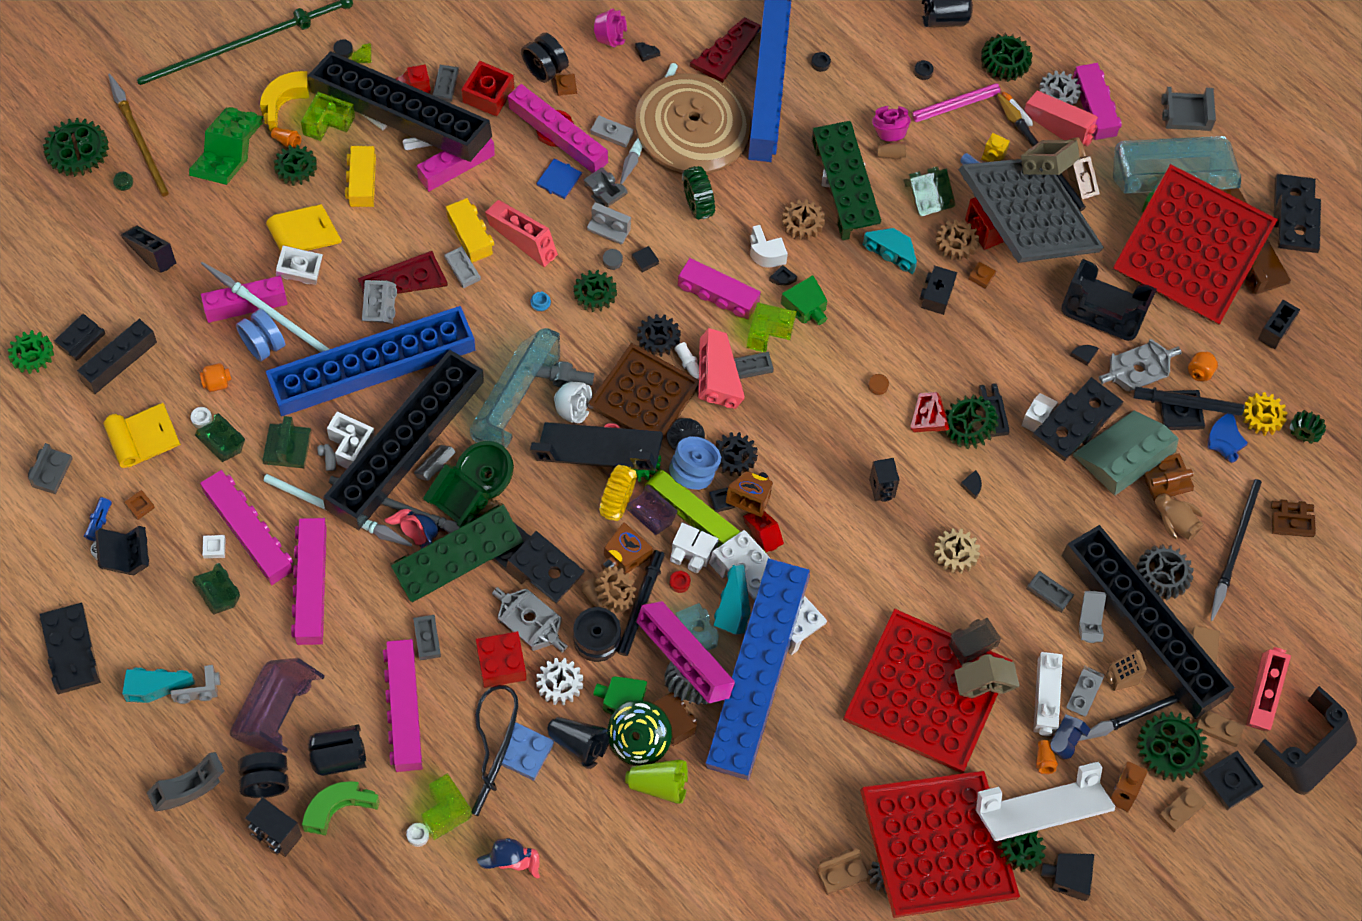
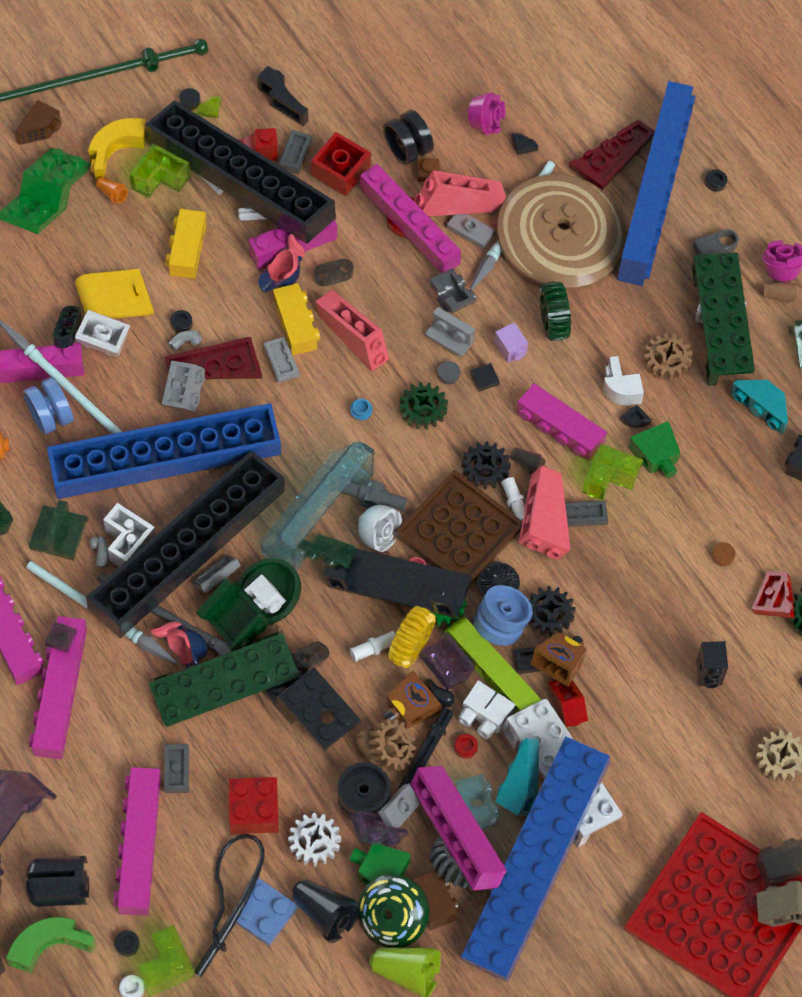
camera: 10 degrees right, 0 degrees up
(210, 88) = (38, 124): none -> reddish brown slope
(266, 263) = (67, 326): none -> black beam
(295, 165) = (117, 221): dark green gear -> none
(305, 536) = (61, 637): none -> clear smoke plate
(367, 245) = (181, 321): none -> black tile
(371, 259) = (184, 336): none -> light grey arm
(407, 796) = (127, 943): none -> black tile
(415, 26) = (273, 84): none -> black slope
(452, 187) = (284, 268): none -> coral hair
(482, 473) = (265, 594): none -> white brick
(496, 185) = (333, 272): none -> clear smoke beam
(528, 520) = (306, 653): none -> clear smoke beam
(532, 427) = (328, 549): none -> clear green bracket
(537, 633) = (297, 781): light grey plate -> none
(559, 178) = (404, 274): blue piece -> none
(583, 507) = (372, 646): none -> white pin
(598, 102) = (459, 194): none -> coral slope
(614, 663) = (371, 829): none -> clear purple bracket
(630, 642) = (399, 807): none -> light grey plate
(653, 540) = (444, 696): none -> black arm
(664, 226) = (511, 343): none -> lavender brick
(694, 325) = (527, 460): none -> clear smoke cone
(826, 117) = (711, 243): none -> dark grey piece

